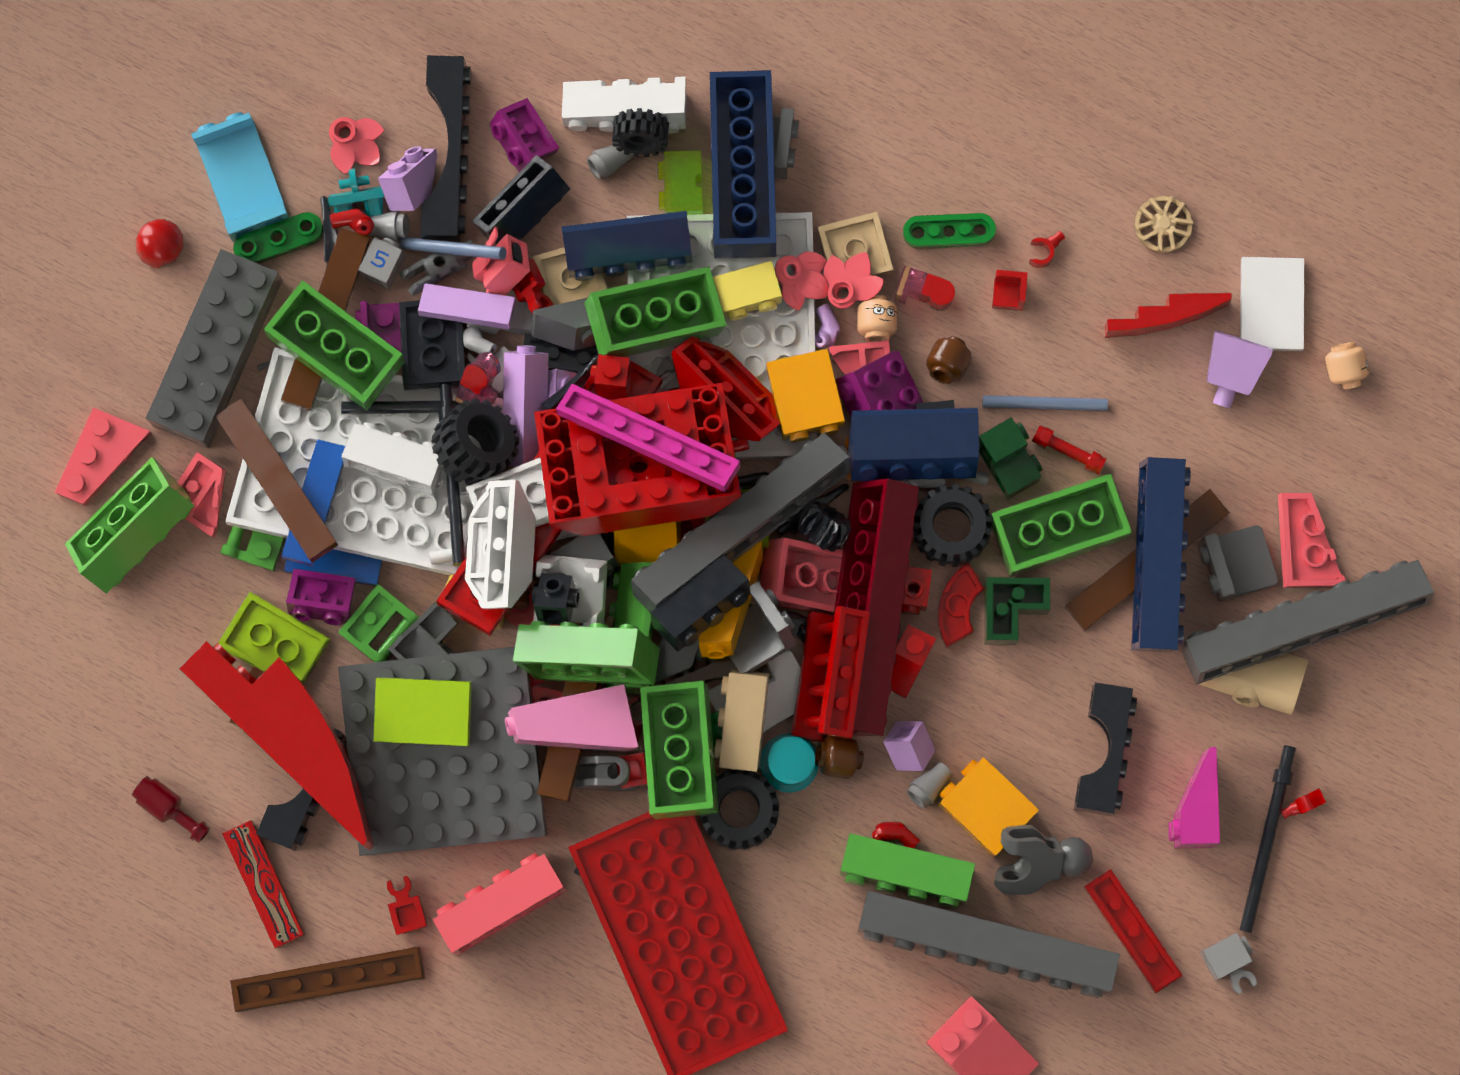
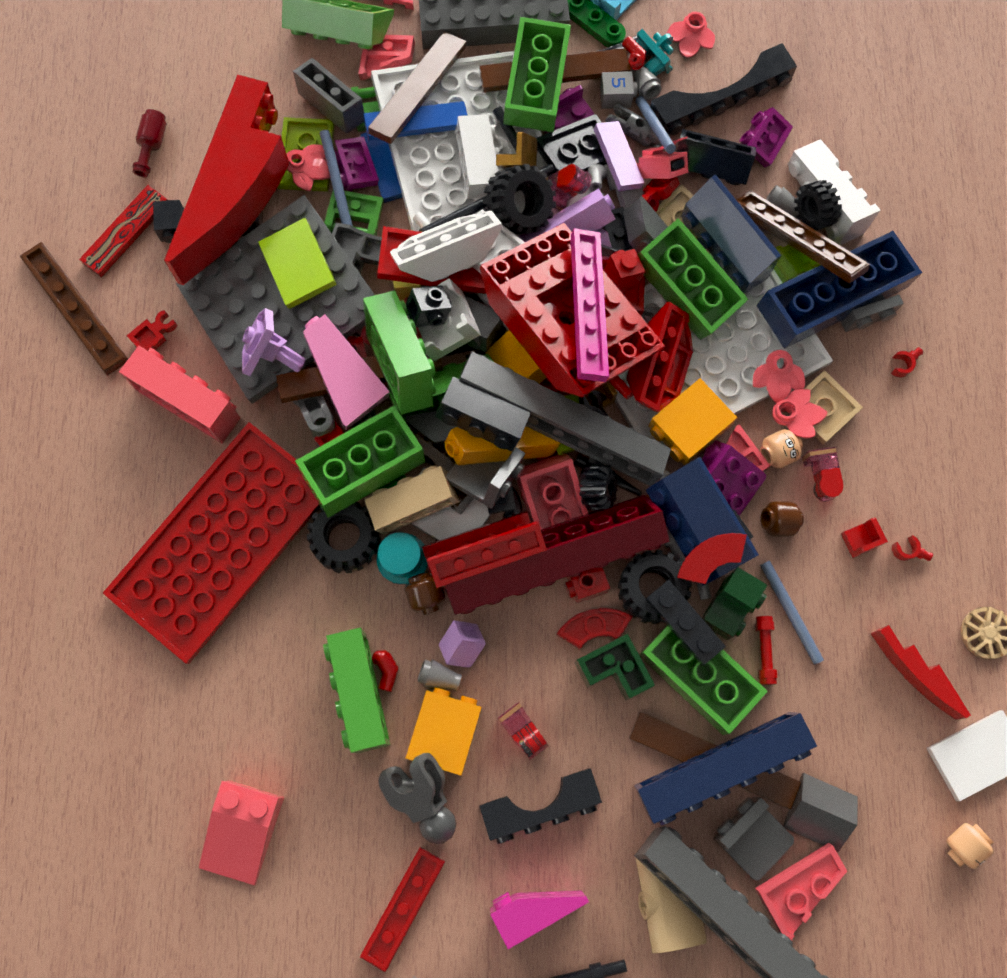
camera: 55 degrees right, 5 degrees down
(226, 582) = (329, 95): none -> dark grey brick
(301, 641) = (312, 166): none -> coral plate
(333, 624) = (335, 177): none -> sand blue bar
(409, 179) = (685, 76): lavender slope -> none
(429, 417) = (525, 153): none -> pearl gold panel
(500, 788) = (265, 344): none -> lavender piece
(663, 171) = (803, 238): none -> reddish brown tile
(748, 290) = (746, 339): light yellow brick -> none
(829, 329) = (754, 418): lavender arm -> none
(849, 129) = (910, 359): none -> red piece
(910, 658) = (532, 608): red slope -> none
(954, 456) = (710, 555): none -> red tile
(961, 224) = (878, 457): green plate -> none
(988, 943) = (329, 792): dark grey brick -> none
(1005, 515) = (685, 622): none -> black plate
(1025, 730) = (523, 731): none -> leg
(1235, 366) = (913, 750): lavender torso -> none
(1247, 484) = (822, 812): none -> dark grey slope

